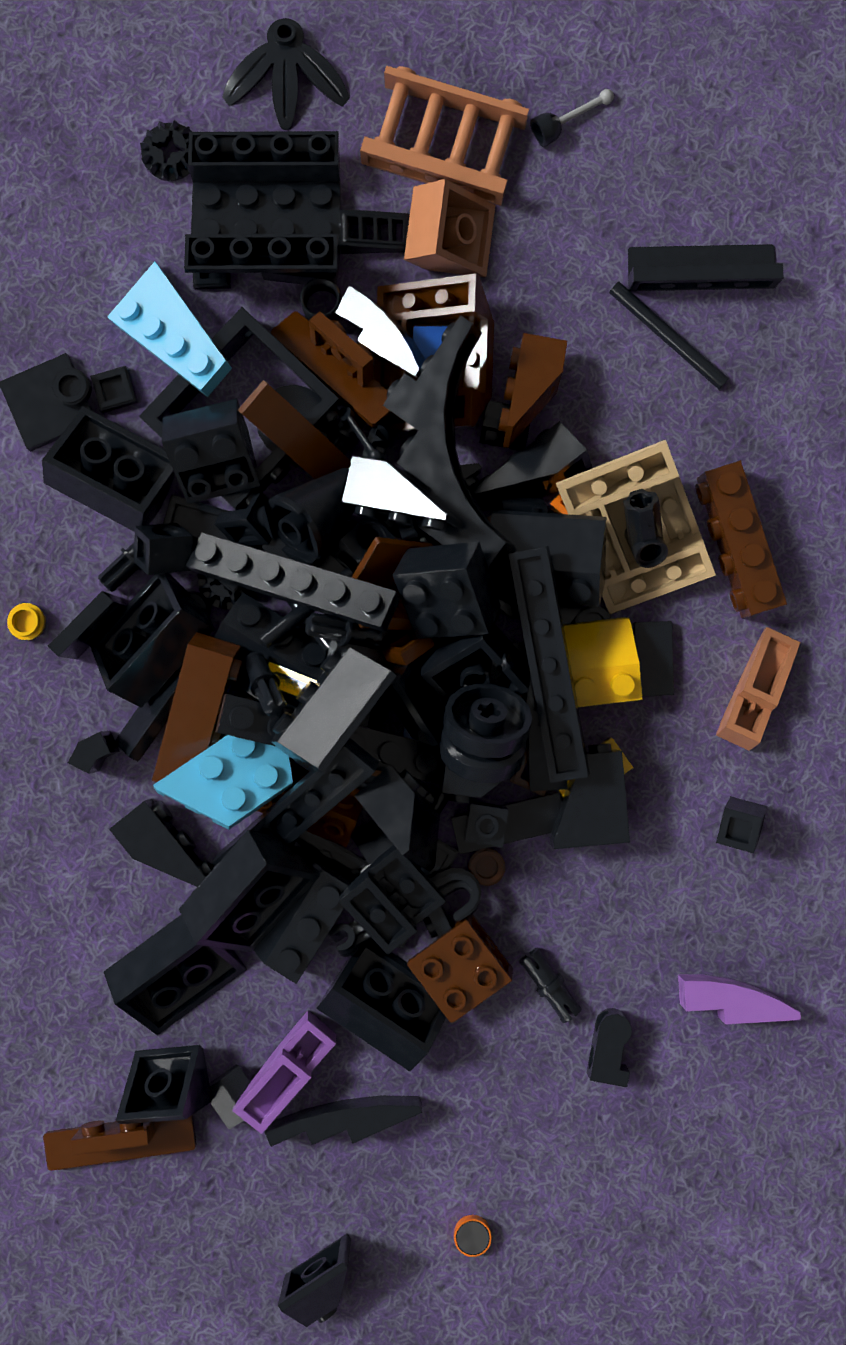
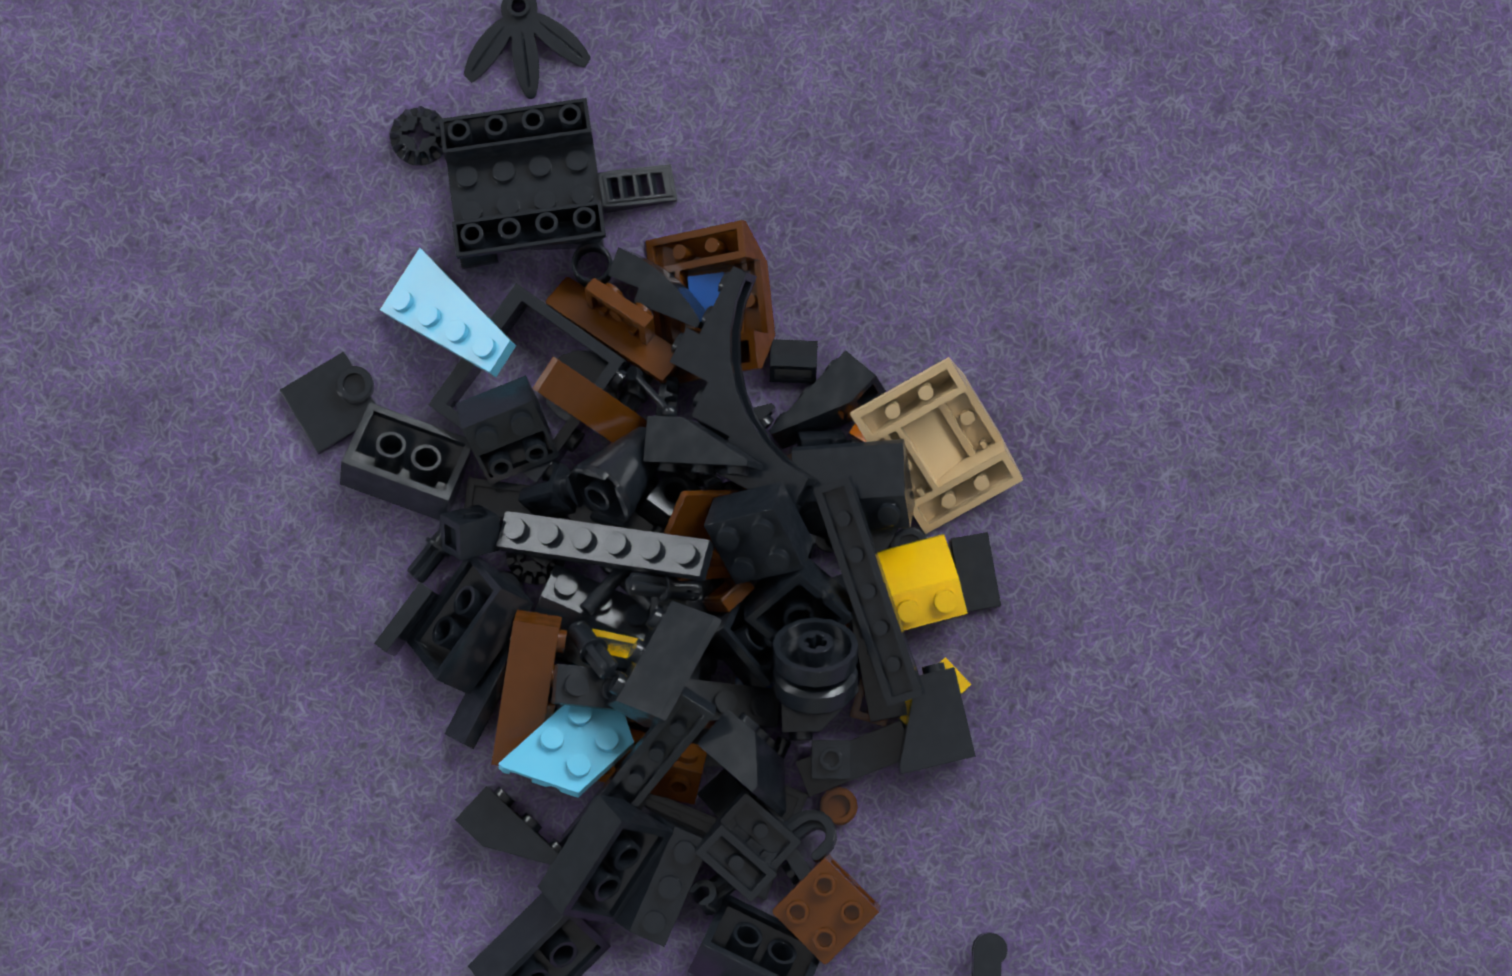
camera: 10 degrees left, 5 degrees down
(26, 621) = (339, 625): yellow plate -> none
(93, 751) = (427, 744): black piece -> none
(114, 389) = (395, 380): black tile -> none
(417, 162) = (704, 118): nougat fence -> none
(449, 229) = (709, 176): nougat slope -> none
(536, 381) = (816, 316): reddish brown slope -> none
(550, 985) = (920, 916): black pin -> none
(551, 125) = (793, 61): hinge -> none
(644, 528) = (944, 445): black piece -> none
(668, 335) = (943, 248): black bar -> none
(703, 267) = (966, 176): black panel -> none
(733, 1000) = (1105, 902): medium lavender slope -> none
(740, 539) = (1043, 441): reddish brown brick -> none
(741, 824) = (1086, 724): black brick -> none
(758, 689) = (1084, 587): nougat slope -> none

